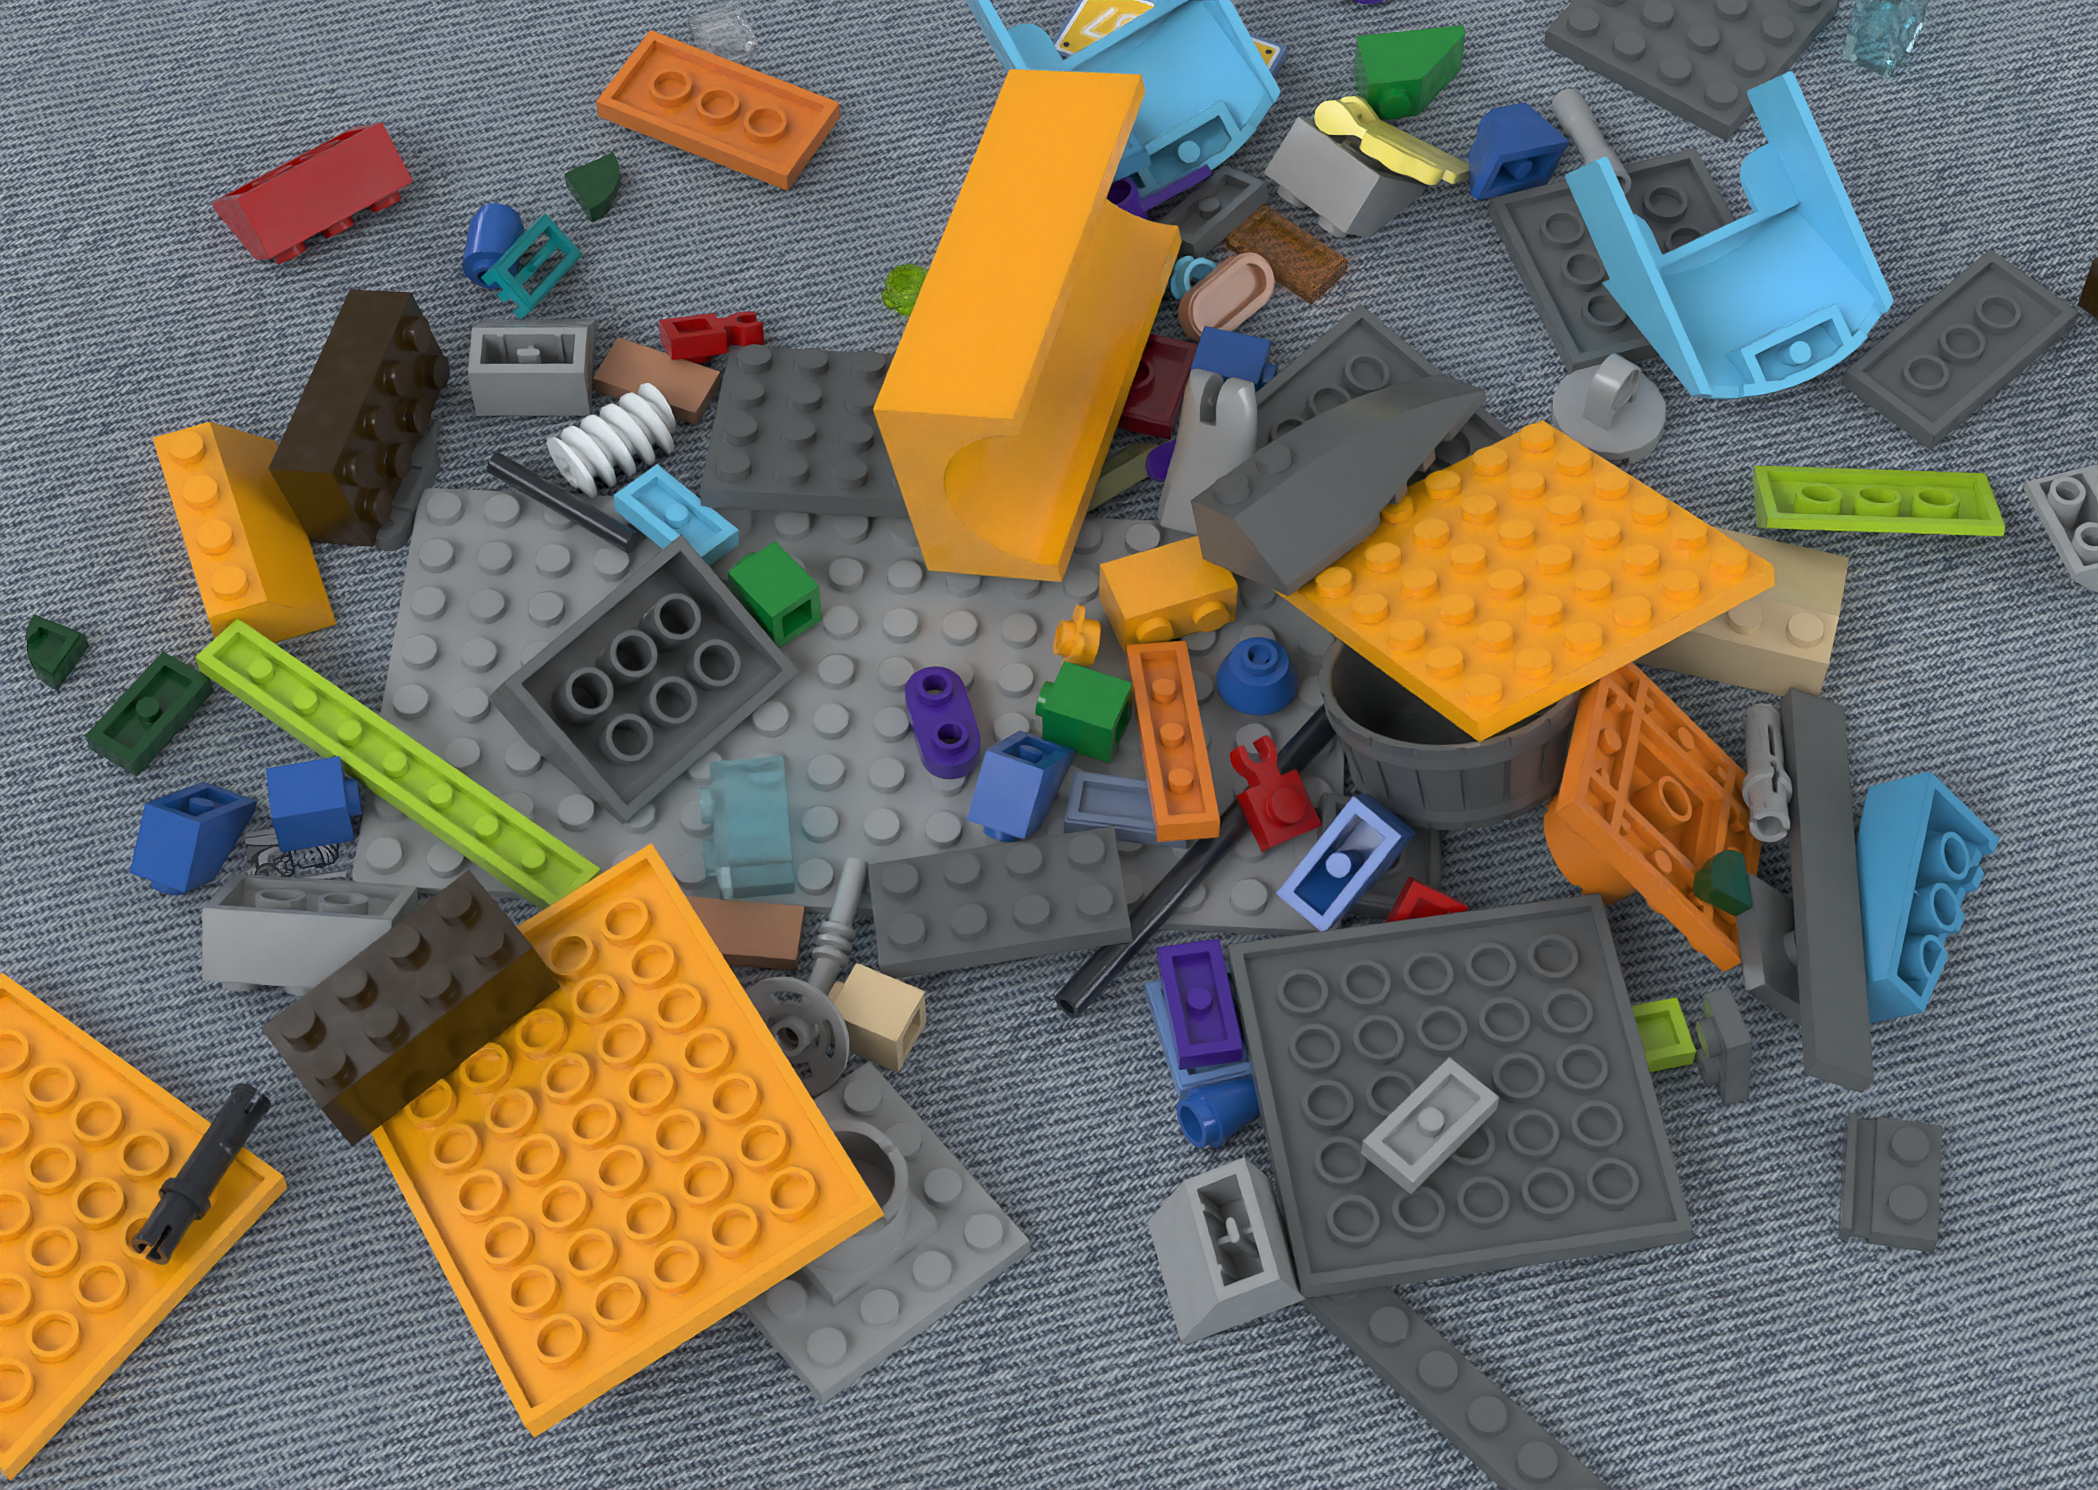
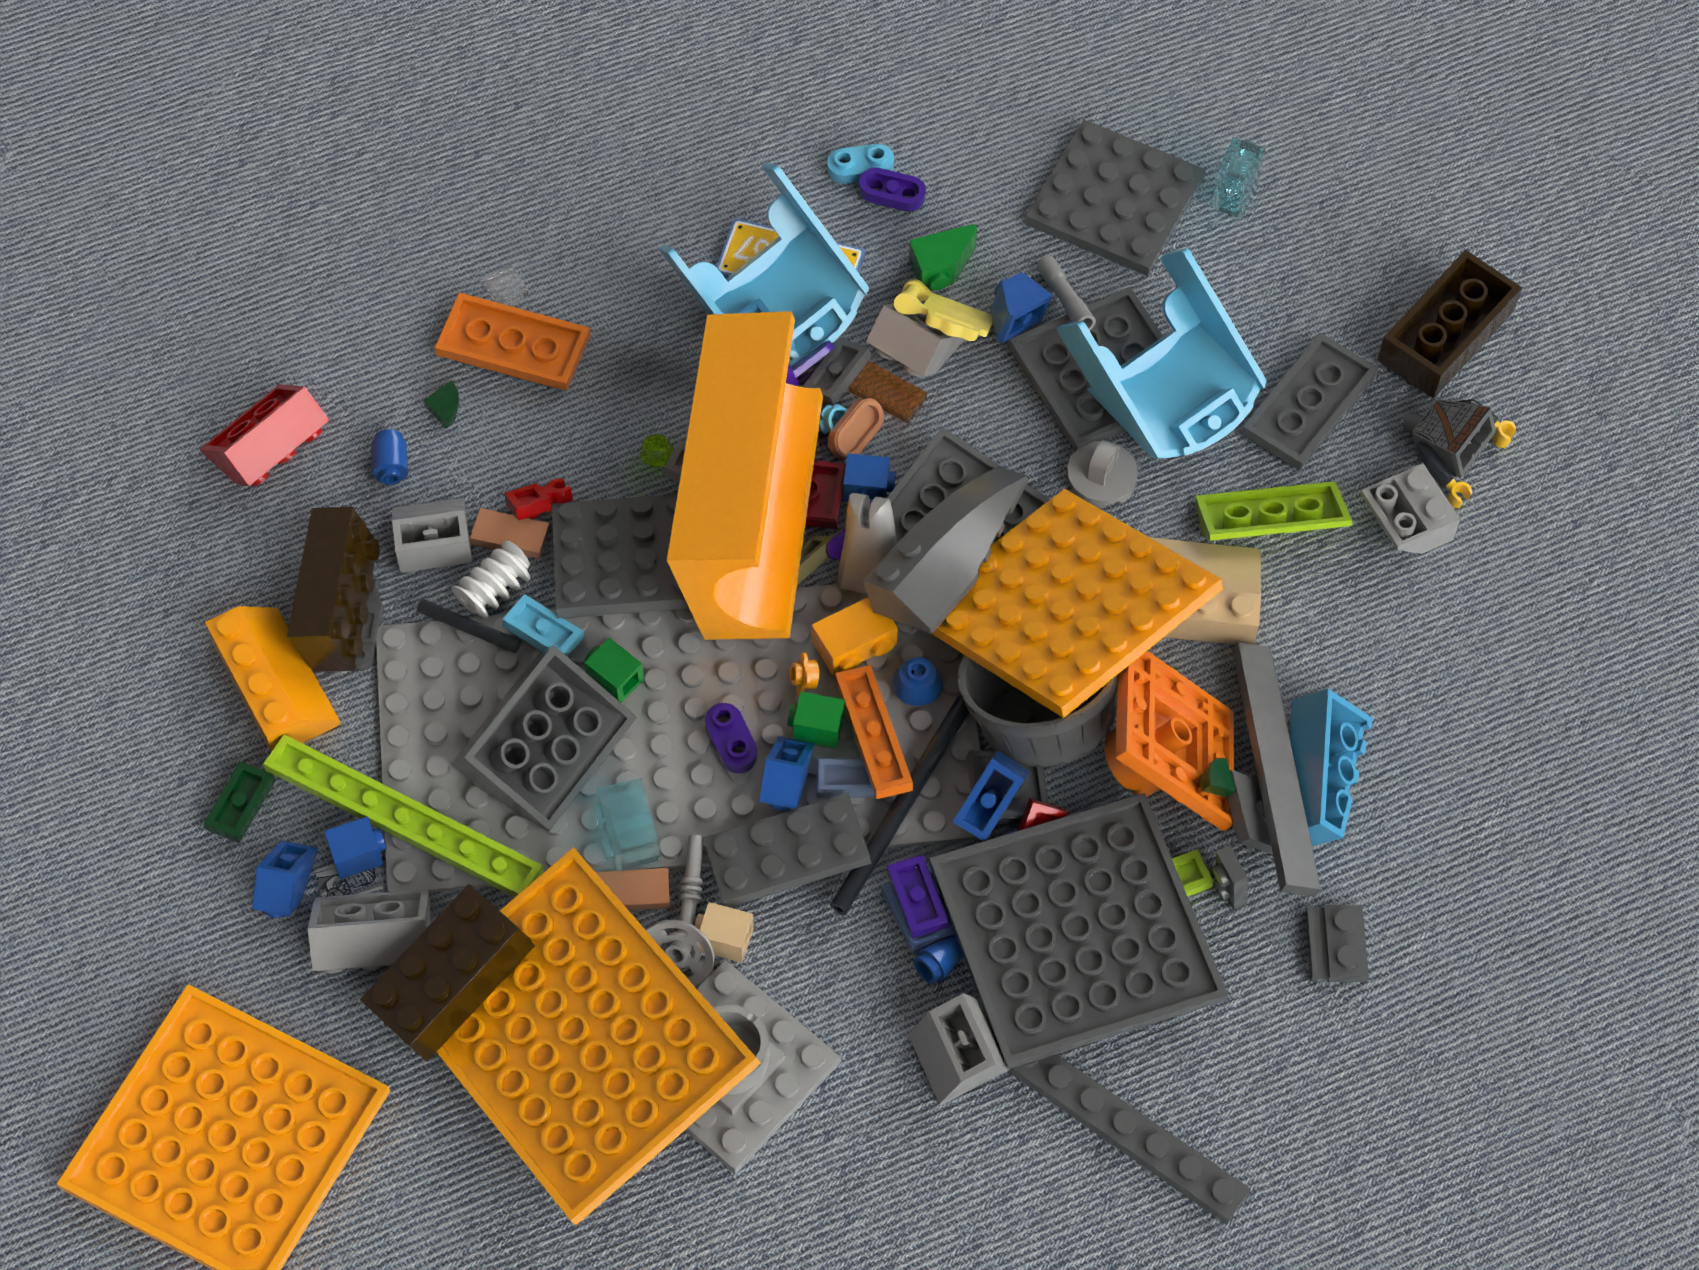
camera: 10 degrees left, 5 degrees up
(53, 650) = (168, 767): dark green tile -> none
(188, 1193) = (335, 1108): black pin -> none
(512, 286) = (407, 484): teal tile -> none
(1275, 803) = (942, 762): red plate -> none
(1429, 1125) = (1067, 955): light grey plate -> none
(1766, 785) = (1232, 708): light grey pin -> none

